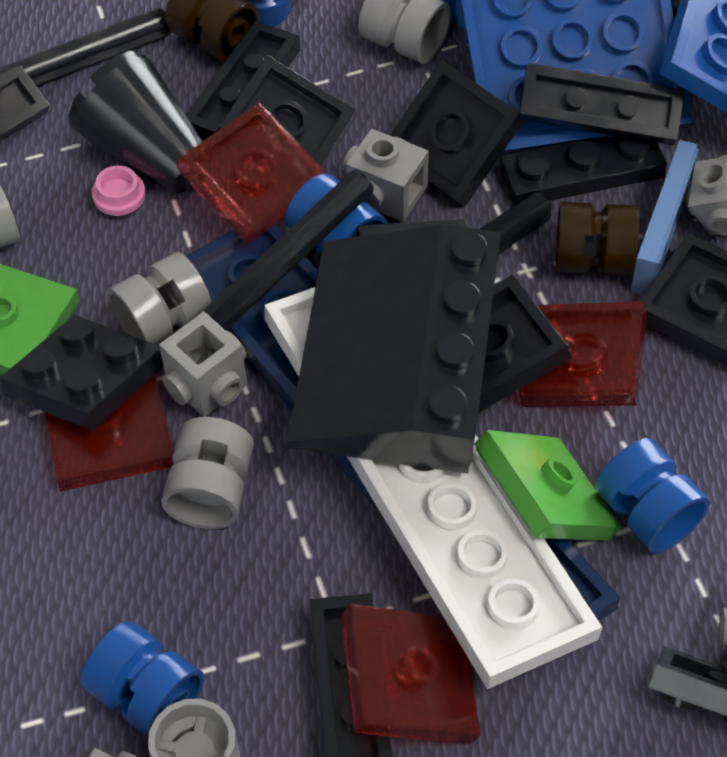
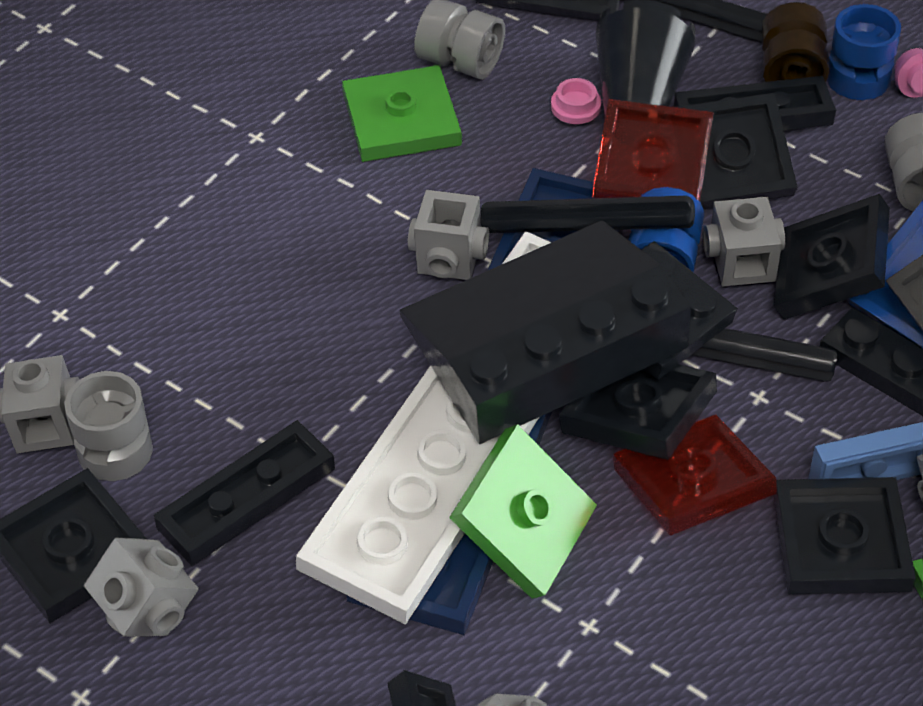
camera: 55 degrees right, 5 degrees down
(82, 372) = (382, 173): black plate -> none
(122, 446) = (356, 223): clear red plate -> none
(136, 675) = (155, 353): blue wheel -> none
(145, 311) = (471, 168): light grey wheel -> none
(208, 473) = (357, 296): light grey wheel -> none
(408, 676) = (269, 514): clear red plate -> none
(616, 240) = (816, 407): dark brown wheel -> none
(658, 503) = (583, 592): blue wheel -> none

